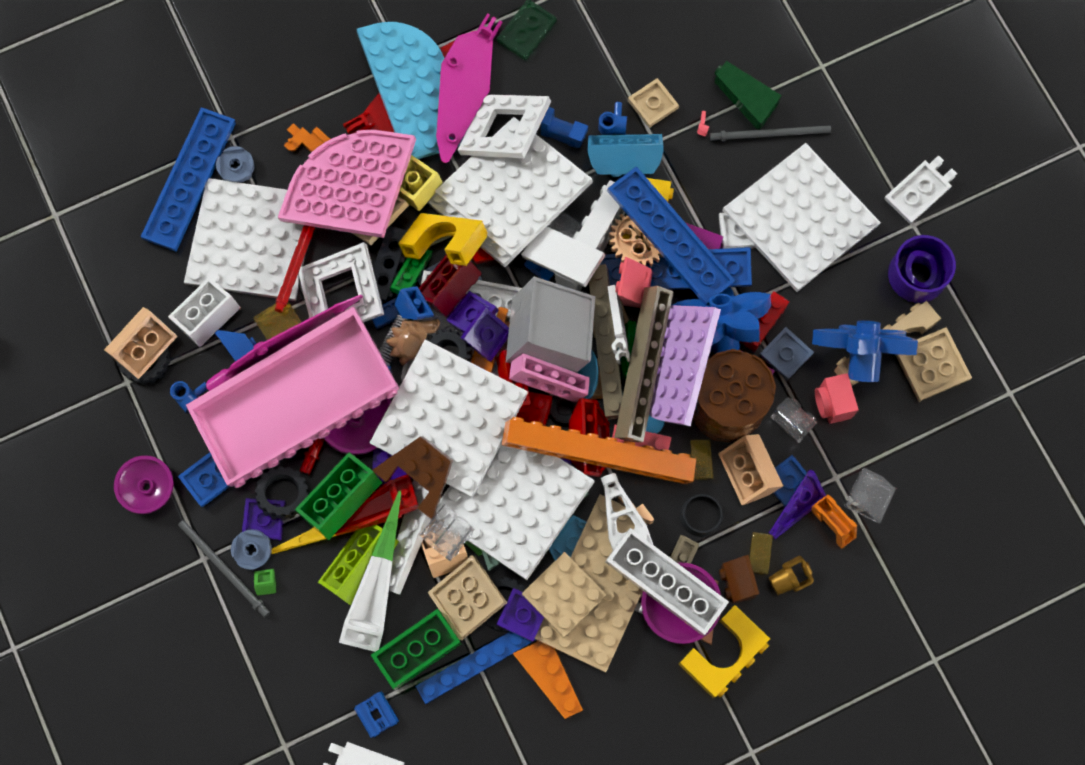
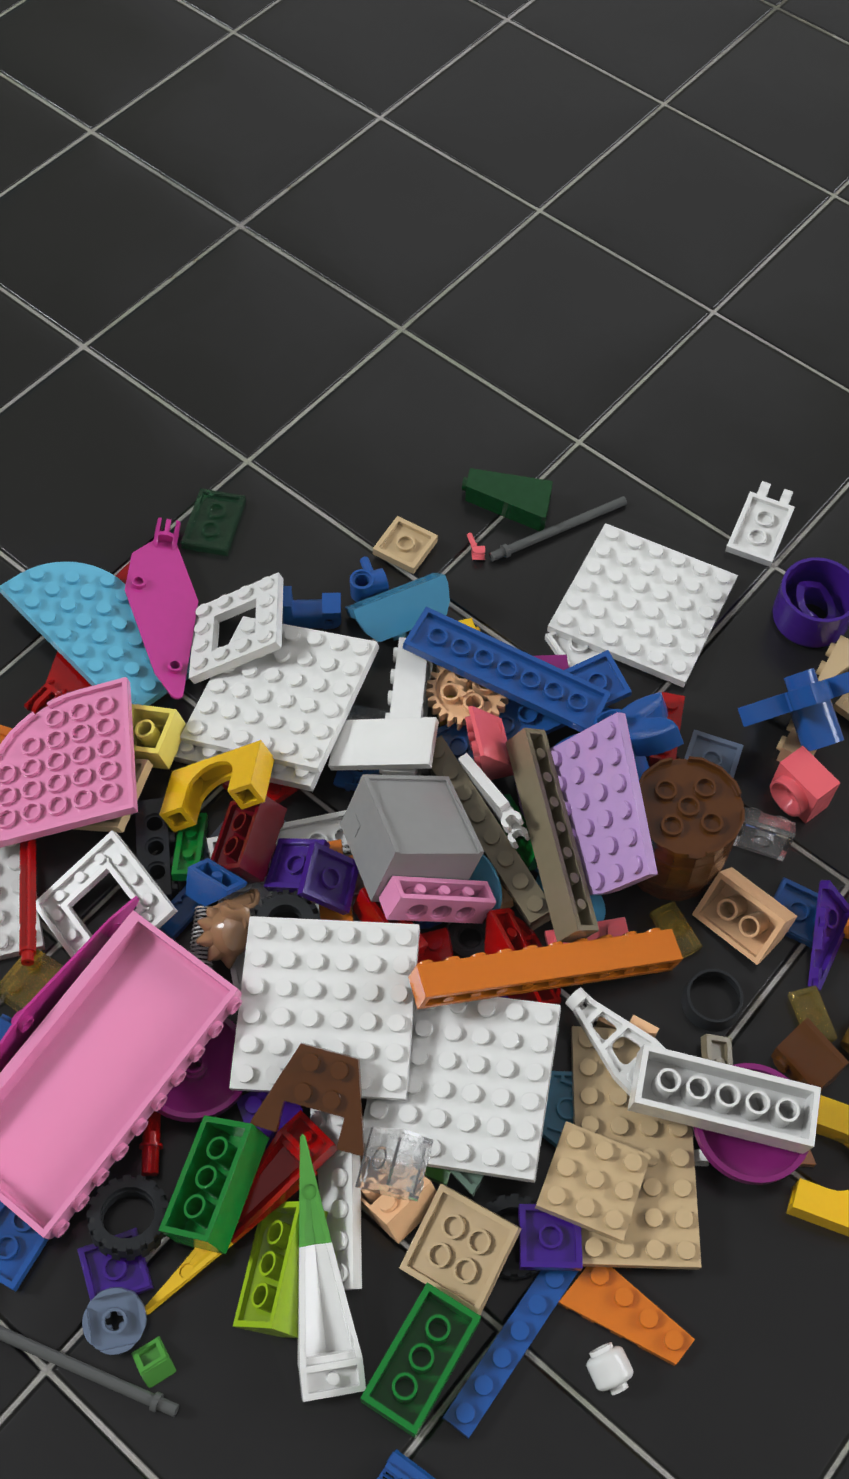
camera: 25 degrees left, 15 degrees down
(523, 703) = (609, 1368): none -> white head

